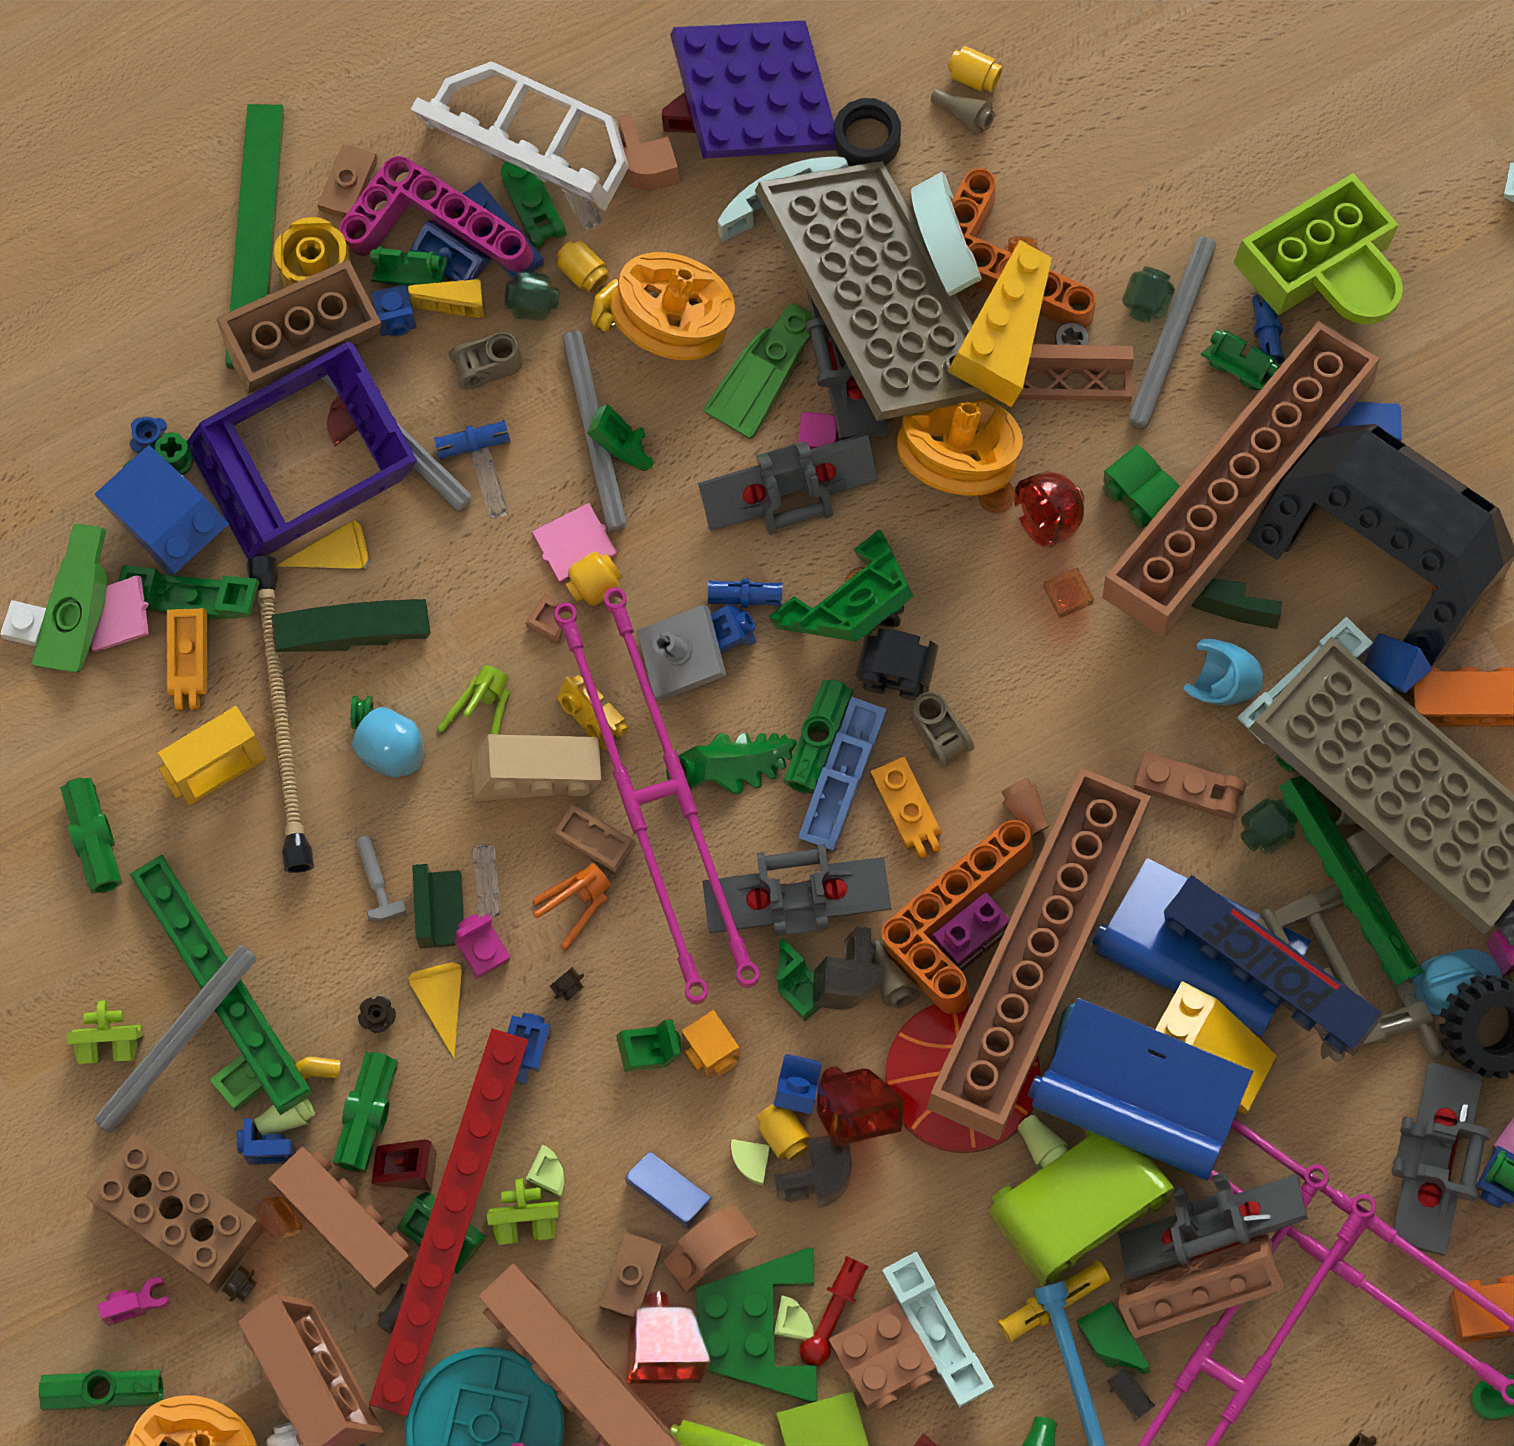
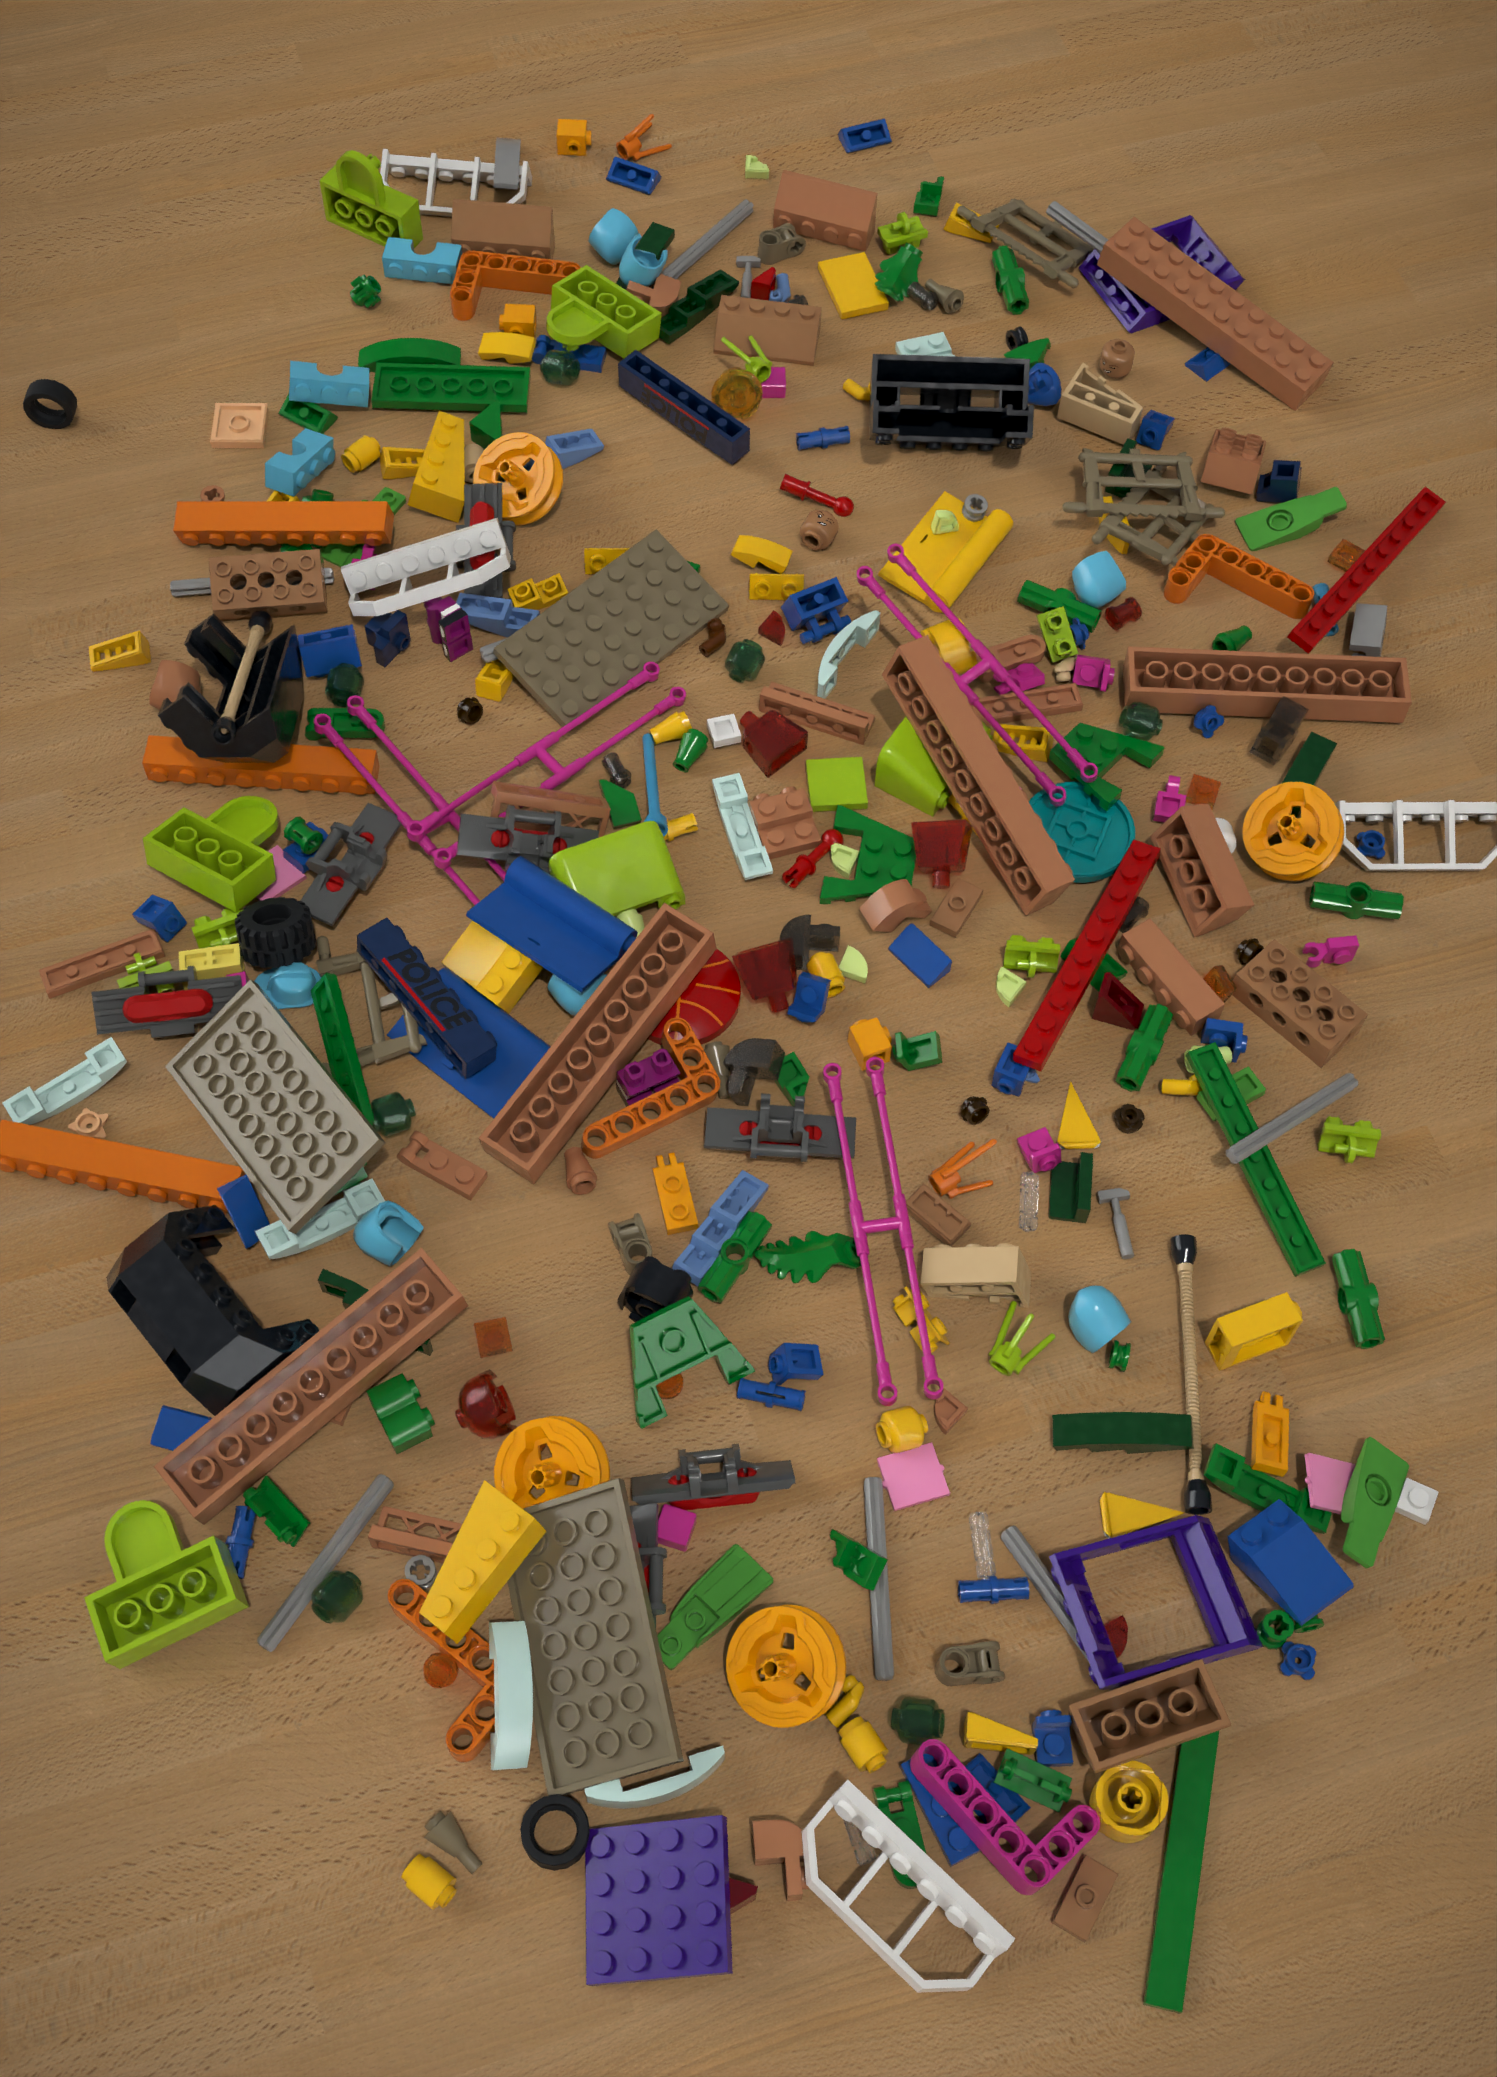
camera: 175 degrees left, 10 degrees down
(681, 653) = (836, 1349): light grey tile -> none

